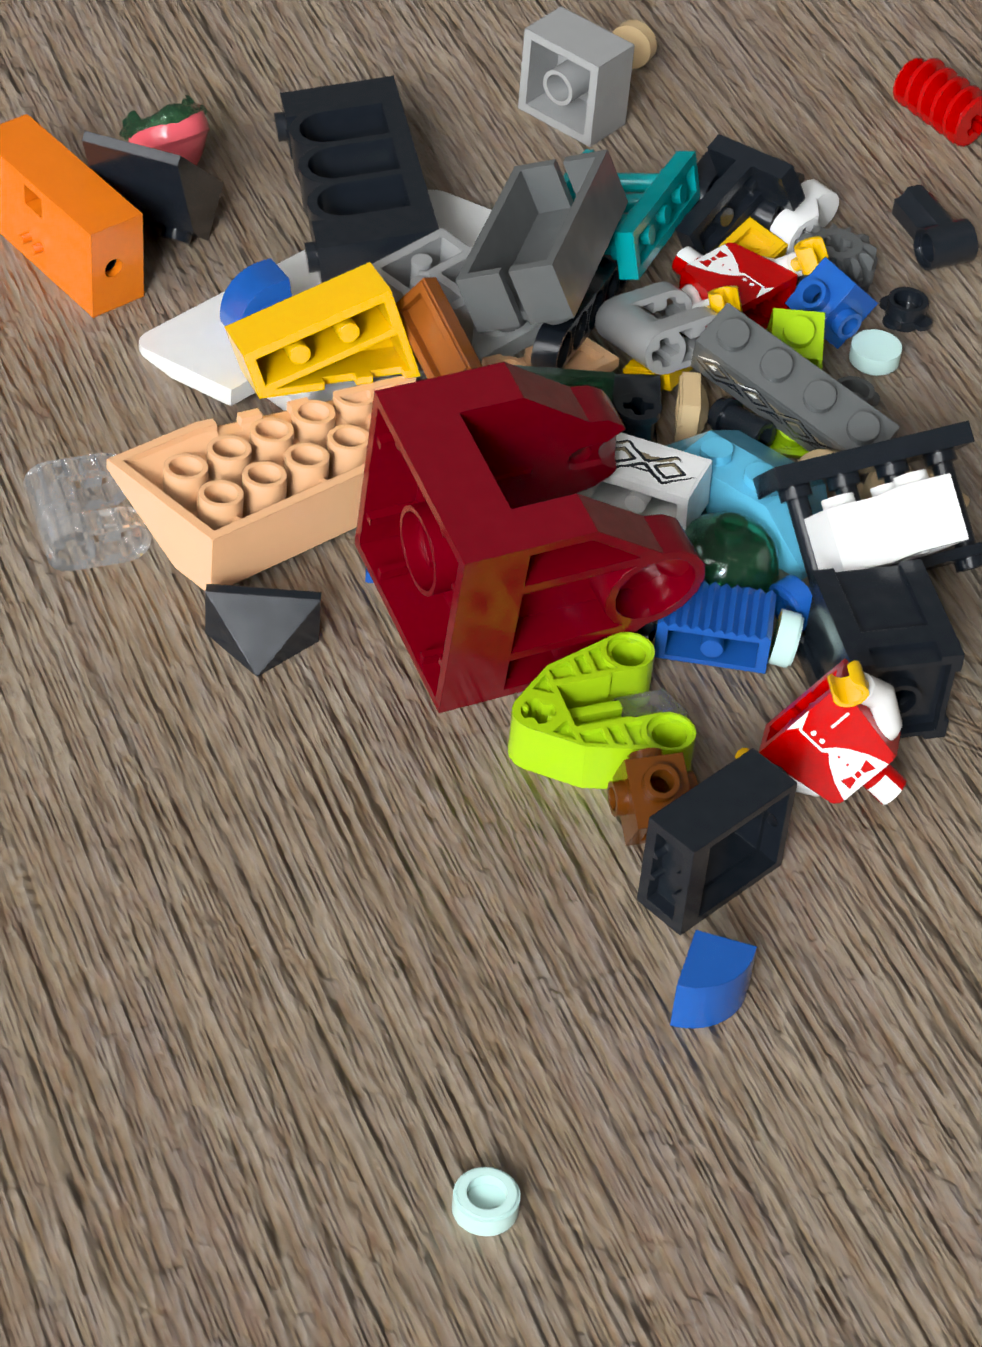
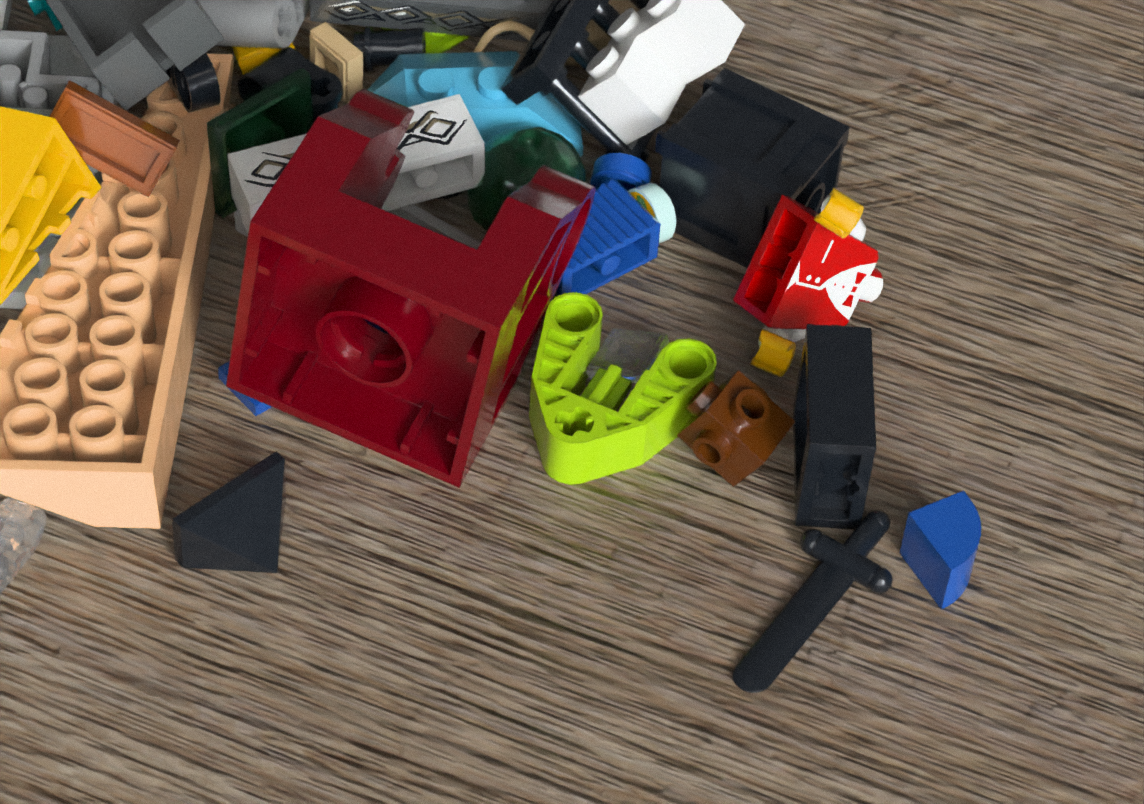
camera: 45 degrees left, 5 degrees up
(629, 942) = (815, 598): none -> black sword

